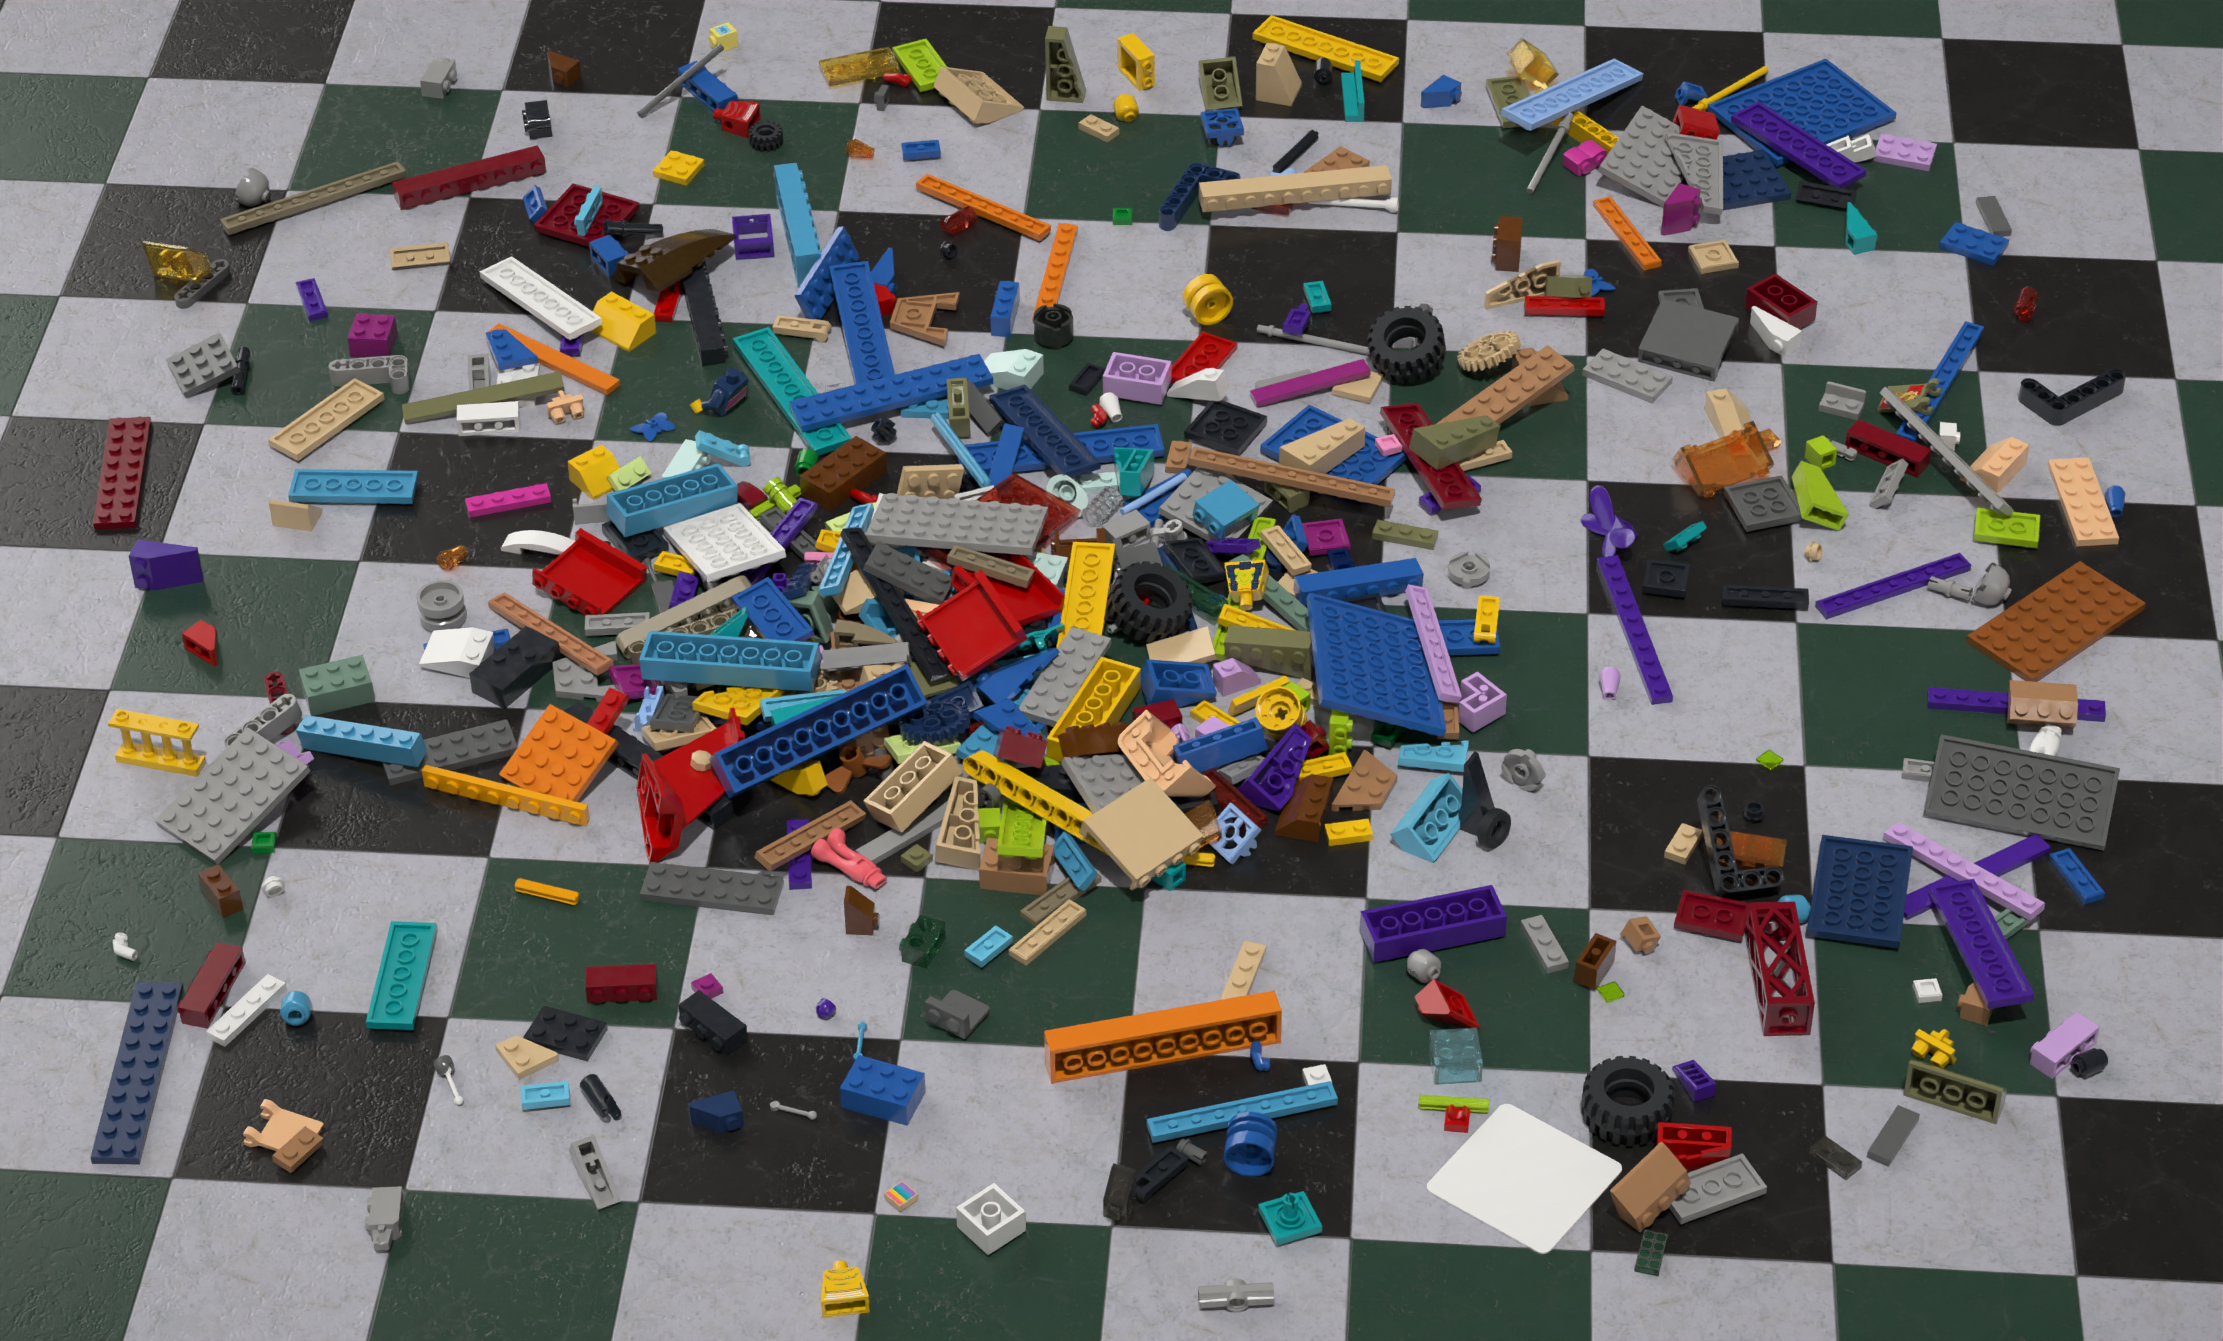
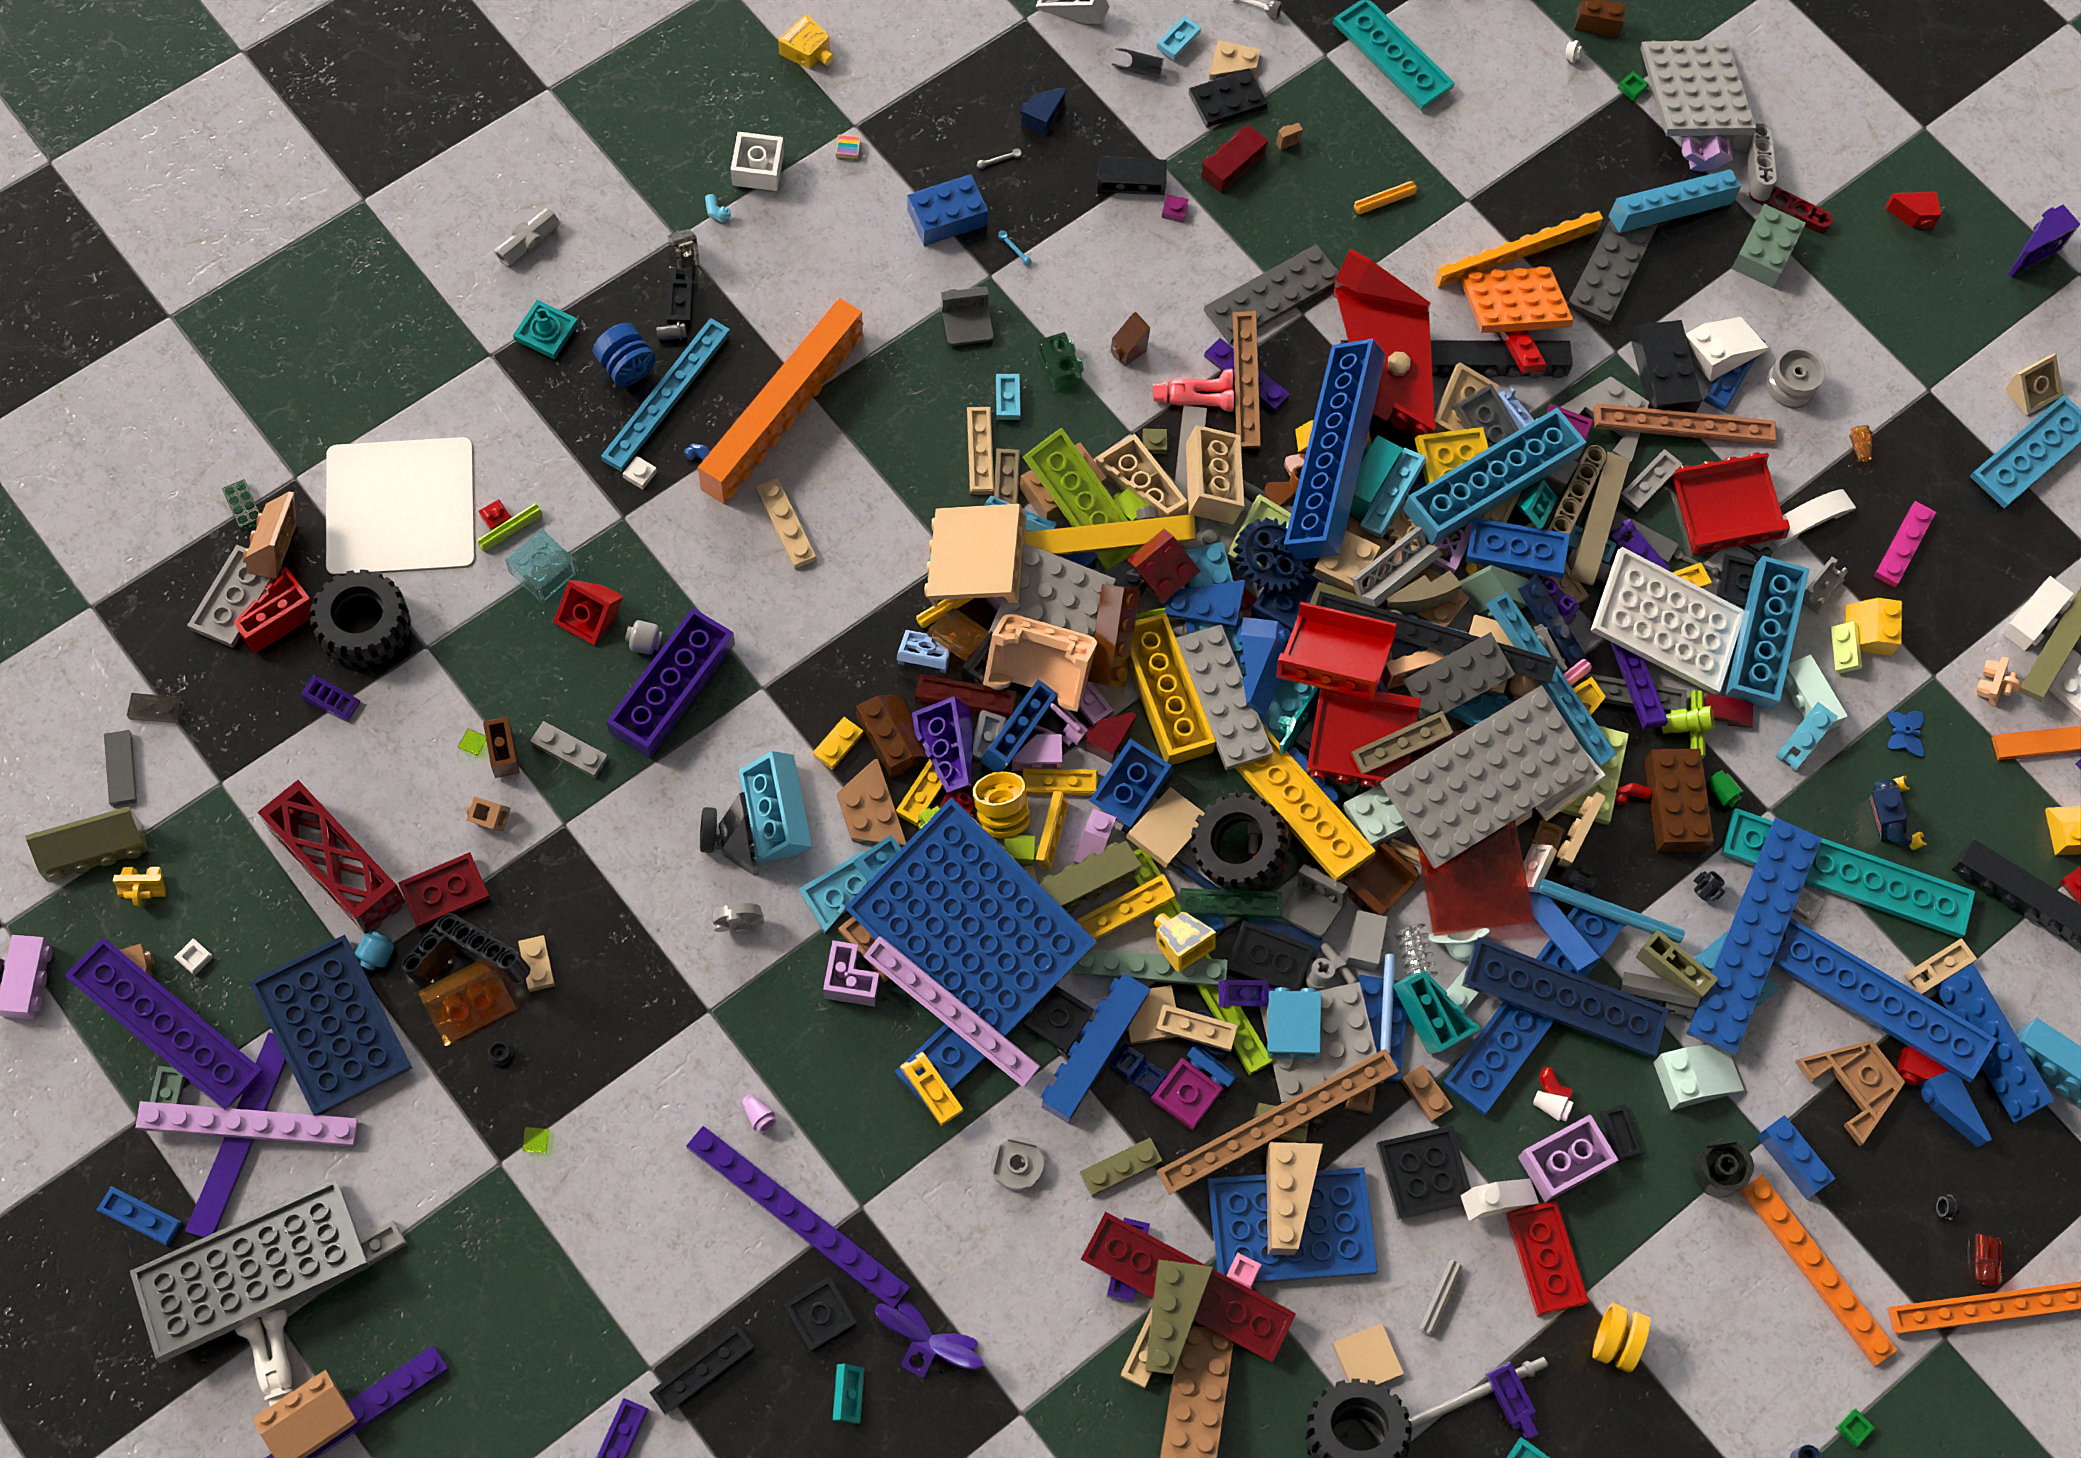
camera: 130 degrees right, 25 degrees up
(155, 757) = (1807, 82): yellow fence -> none
(560, 970) = (1289, 136): none -> medium nougat plate
(825, 1008) = (1068, 252): dark purple hinge -> none
(1060, 1216) = (715, 212): none -> medium azure arm
(1310, 382) = (1408, 1311): magenta tile -> none
(1393, 743) = (877, 857): none -> dark azure plate

